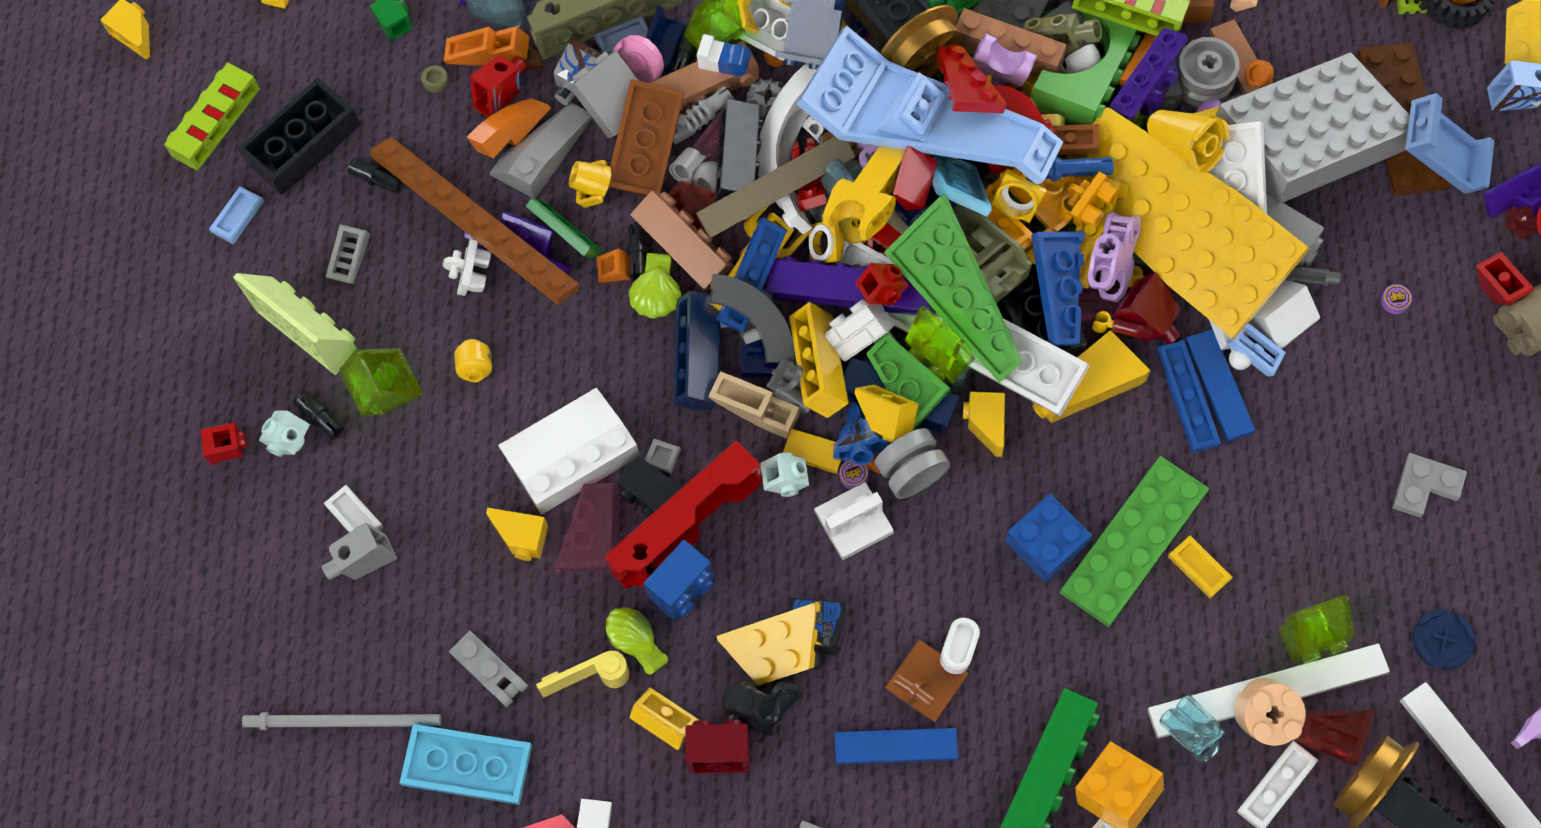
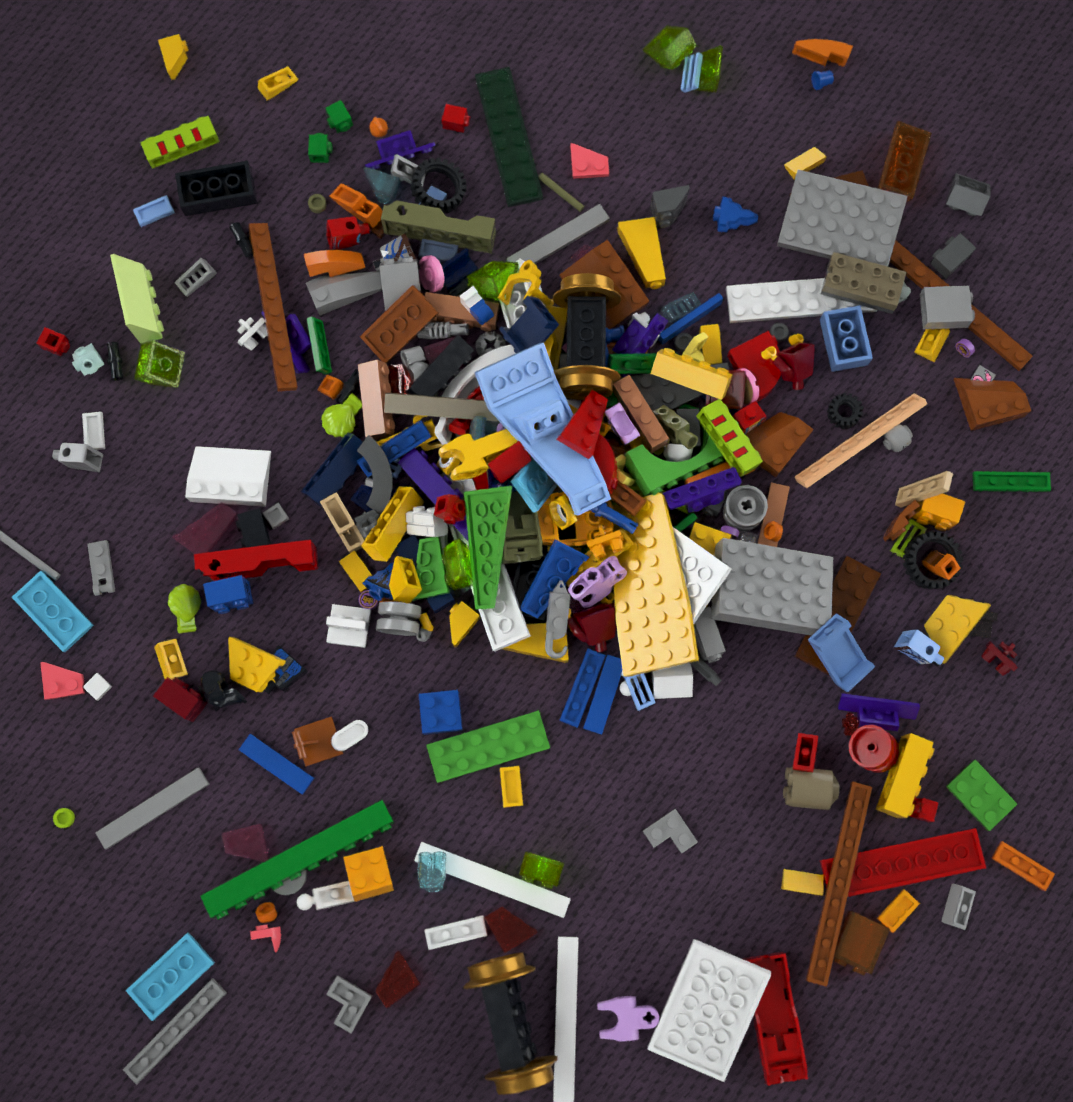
camera: 30 degrees right, 10 degrees up
(473, 360) = (215, 389): yellow head -> none
(520, 532) = (168, 505): yellow slope -> none
(590, 180) = (353, 327): yellow piece -> none
(609, 665) = (158, 614): light yellow door -> none
(784, 474) = (329, 574): light aqua brick -> none
(953, 457) = (426, 628): none -> arm
(1102, 327) = (557, 618): none -> light grey plate
(1190, 137) = (684, 547): yellow cone -> none
(1283, 722) = (478, 892): light nougat brick -> none
(1396, 299) = (743, 717): tile -> none
(1443, 640) = (608, 922): dark blue tile -> none

